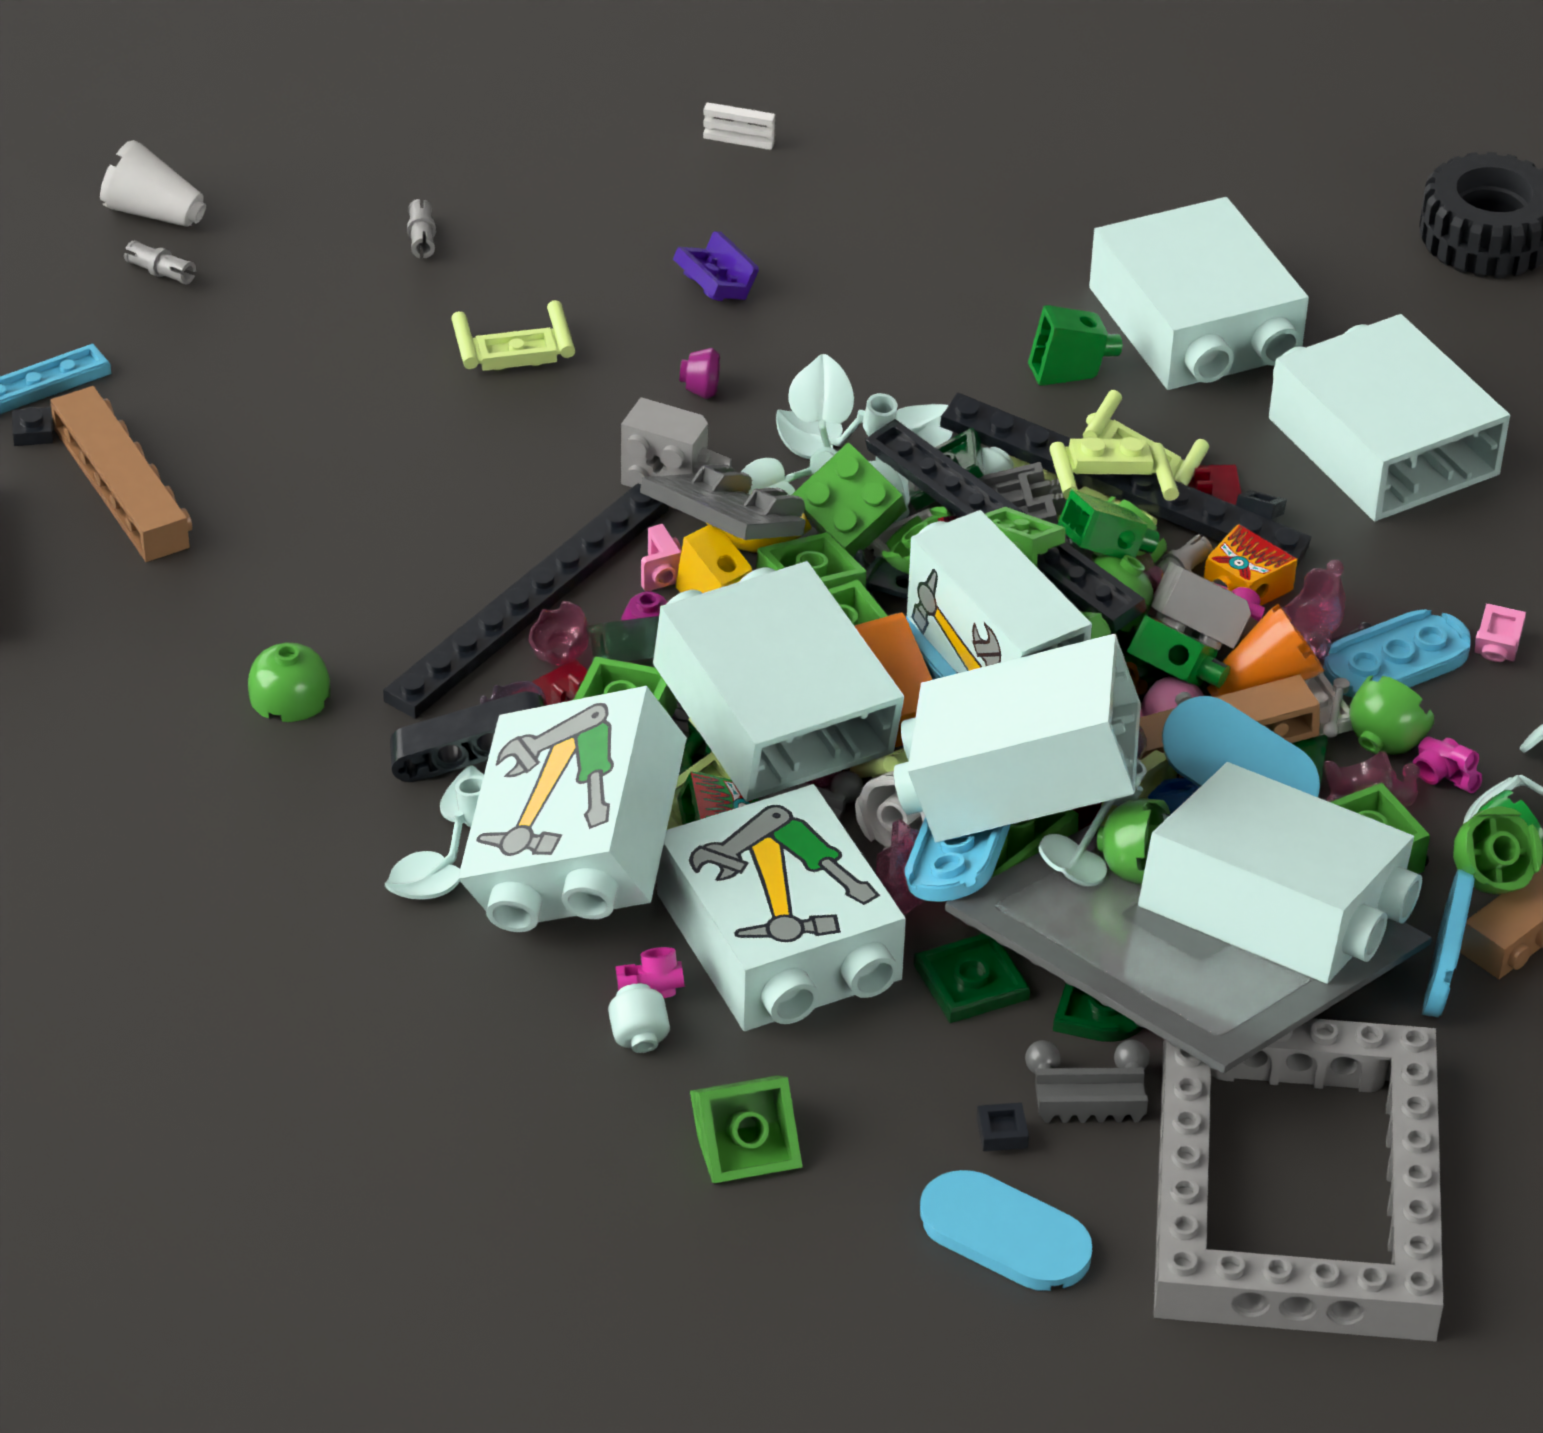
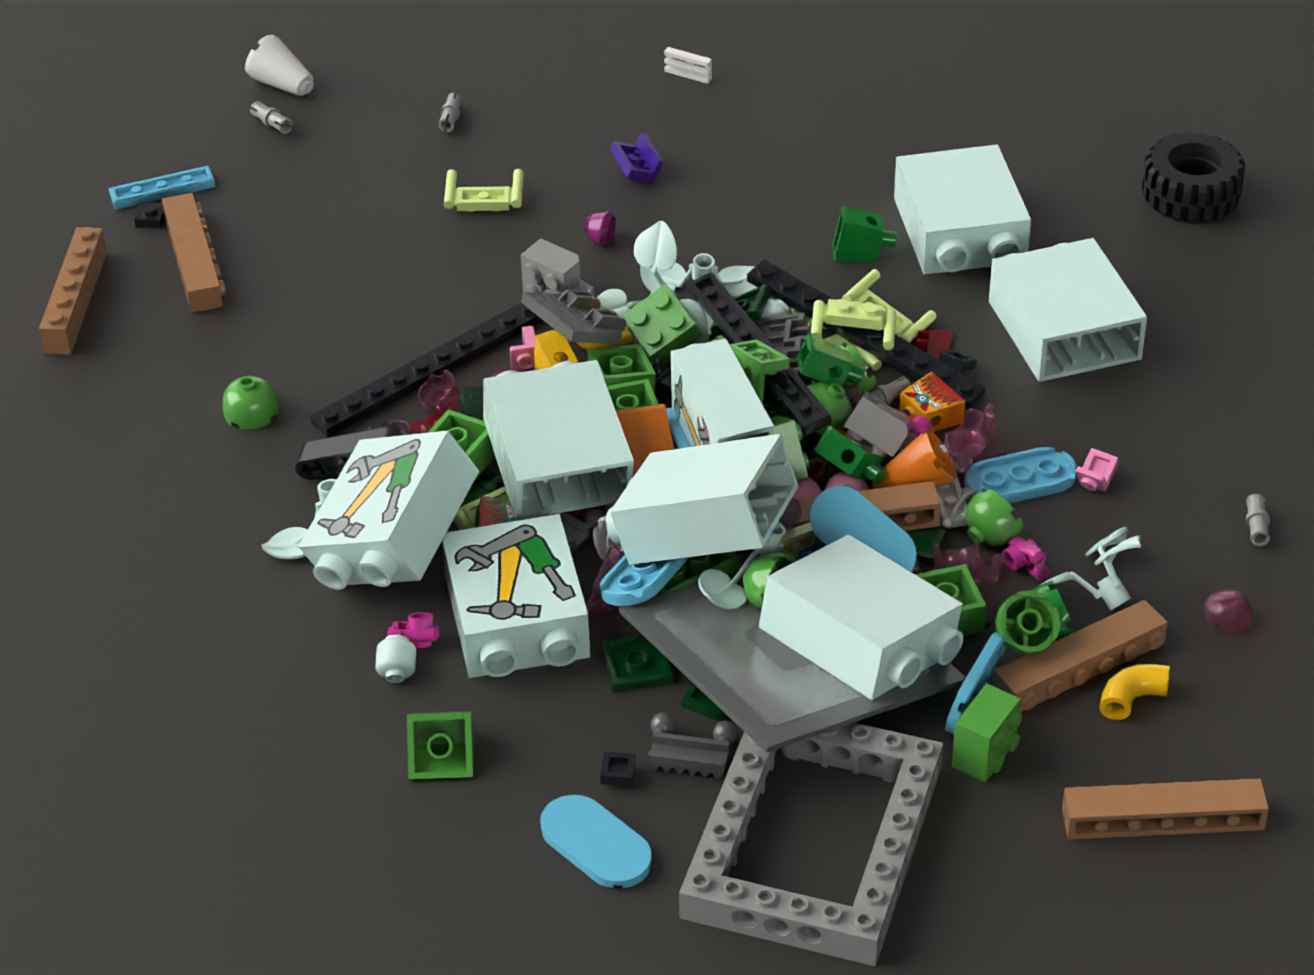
camera: 15 degrees right, 0 degrees up
(1486, 1007) = (986, 733): none -> bright green brick

